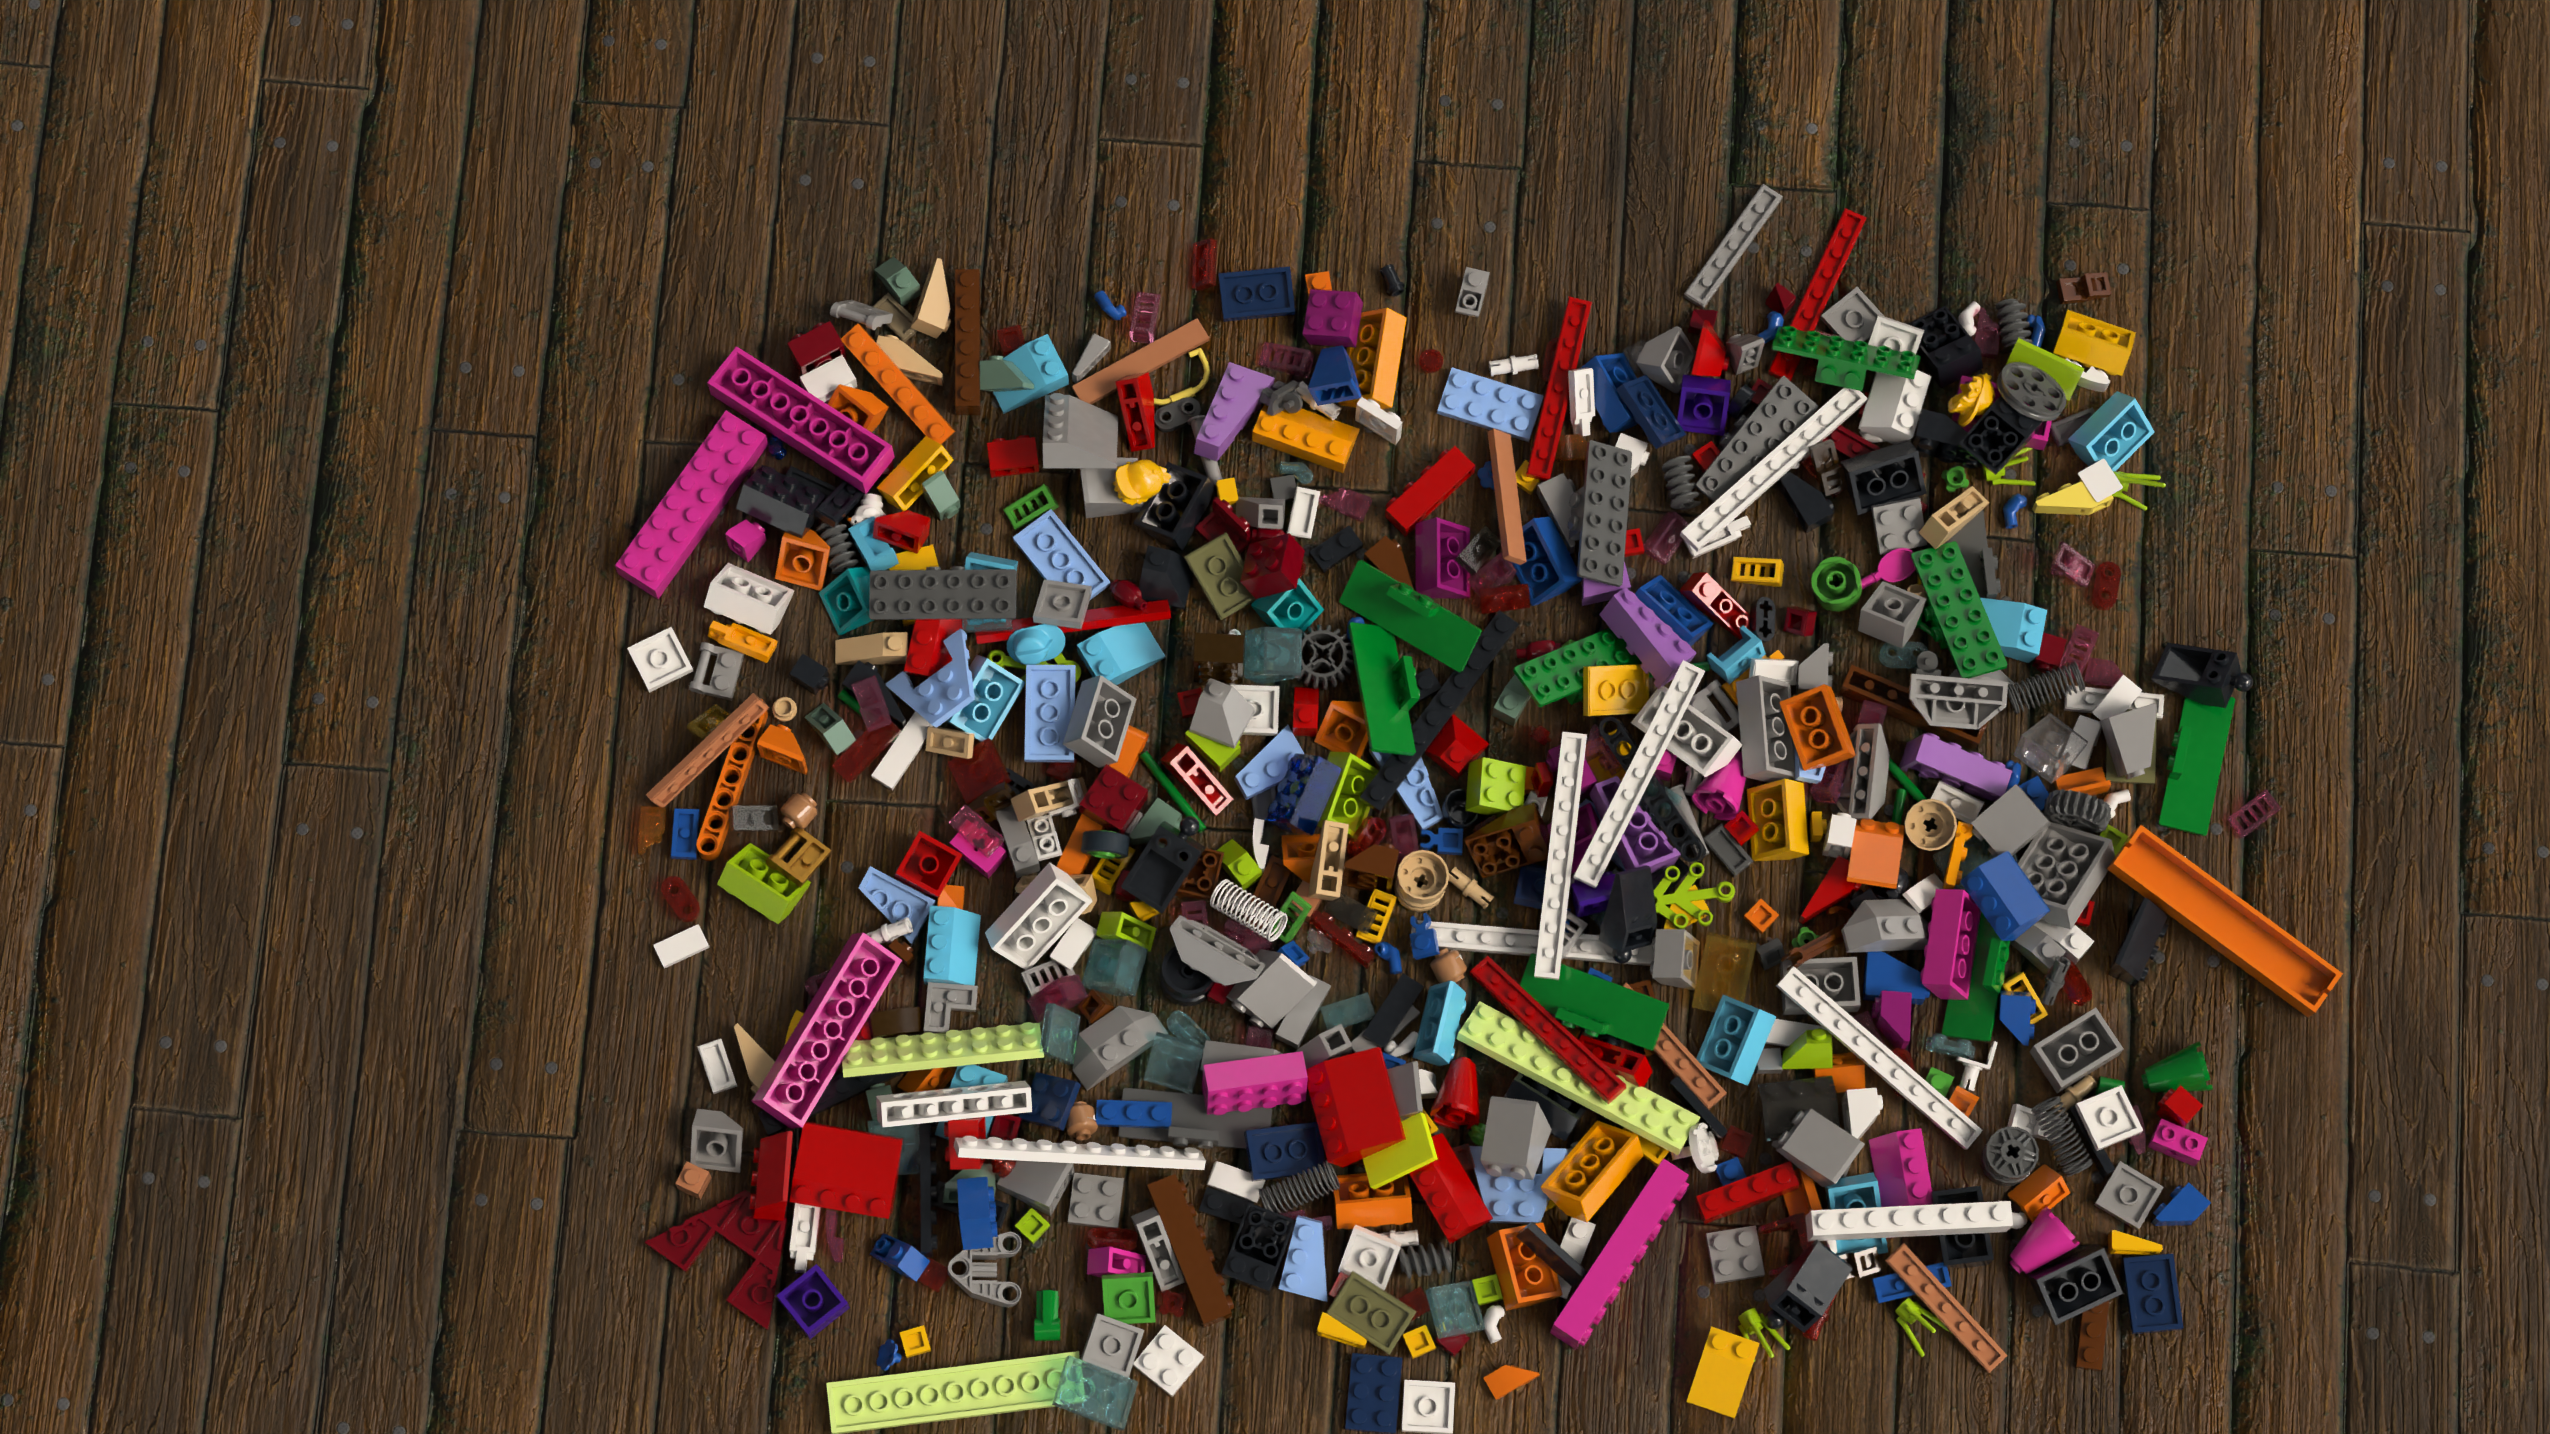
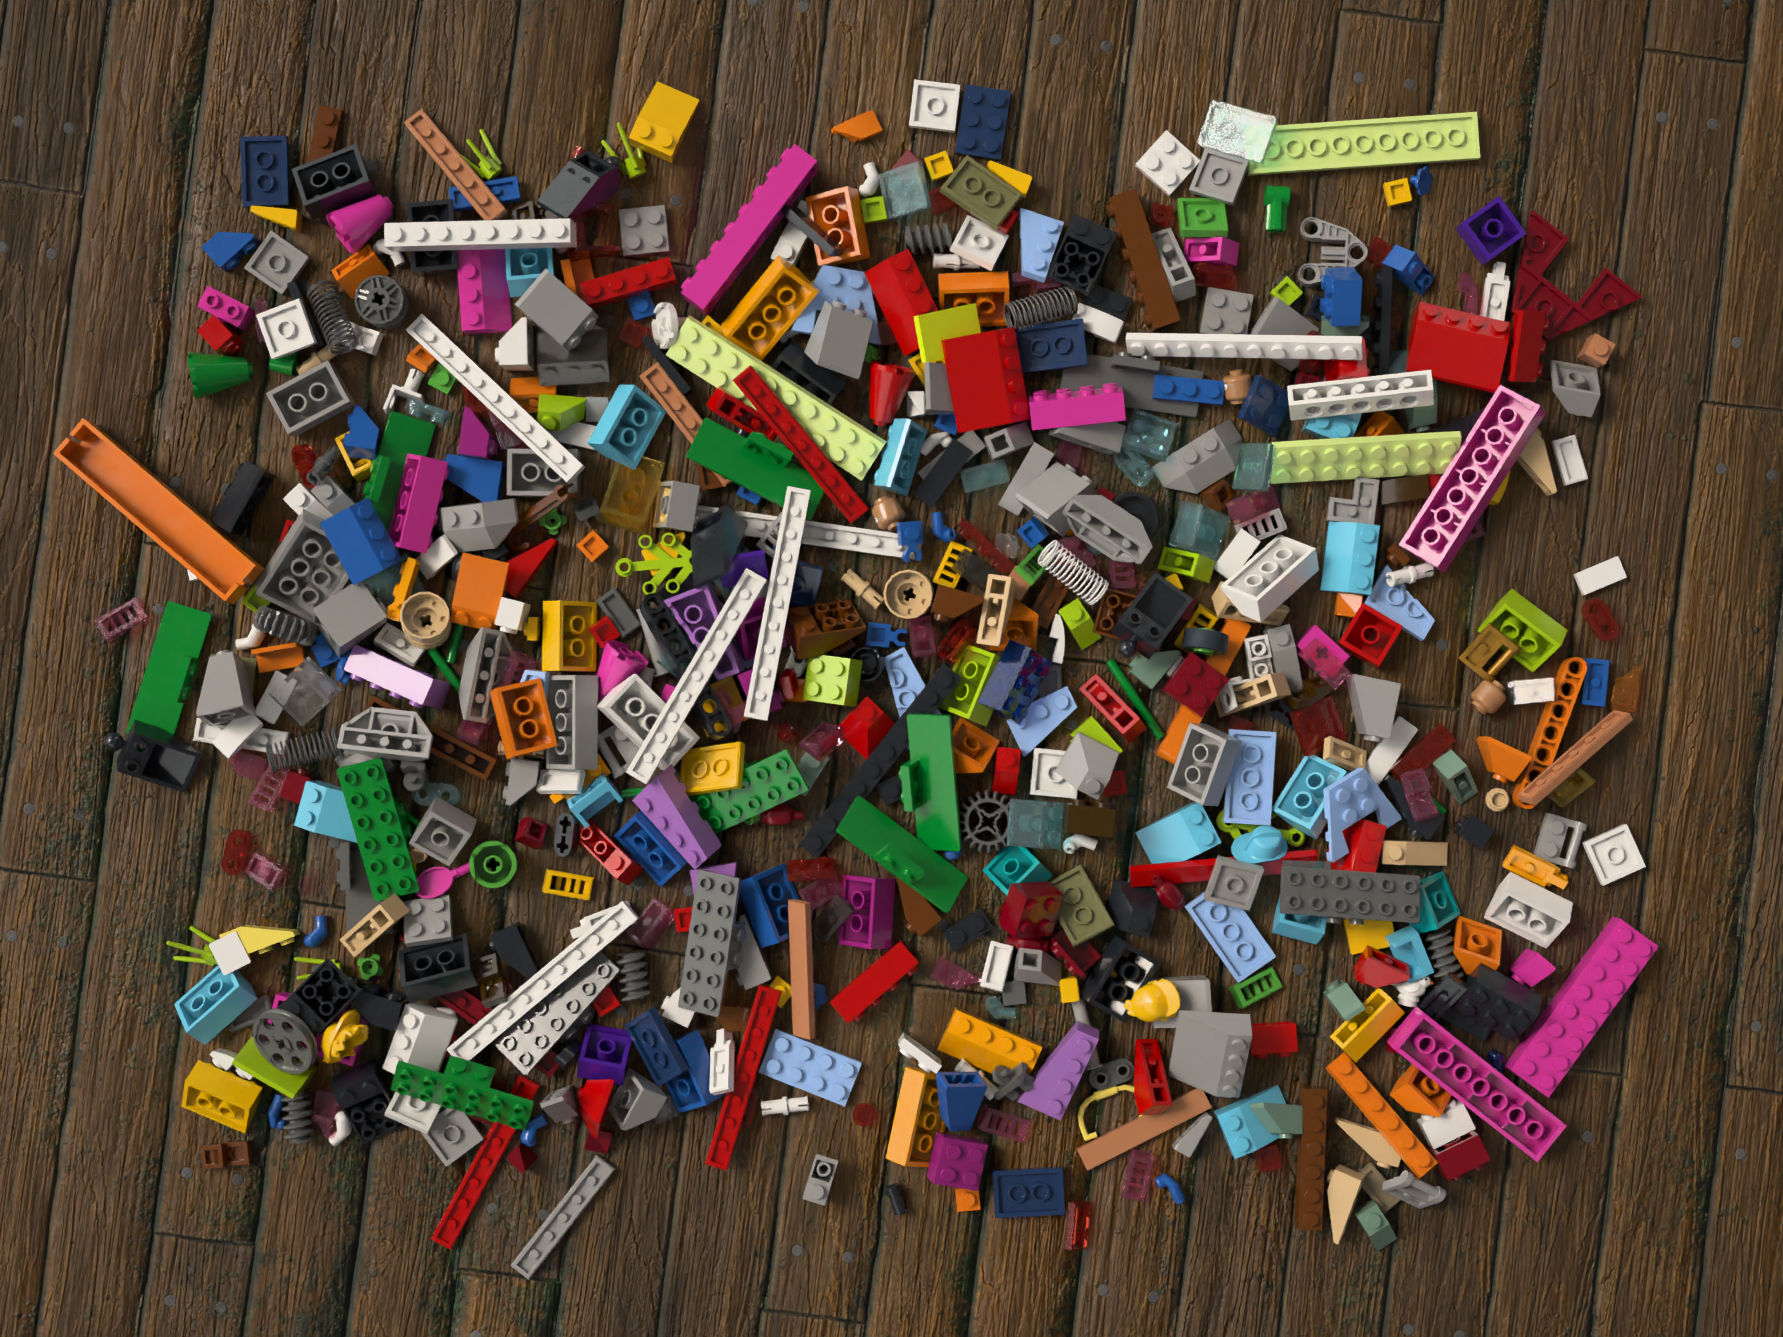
camera: 175 degrees left, 15 degrees up
(921, 795) = (1373, 705): none -> light grey slope
(1502, 726) = (822, 740): none -> clear pink slope

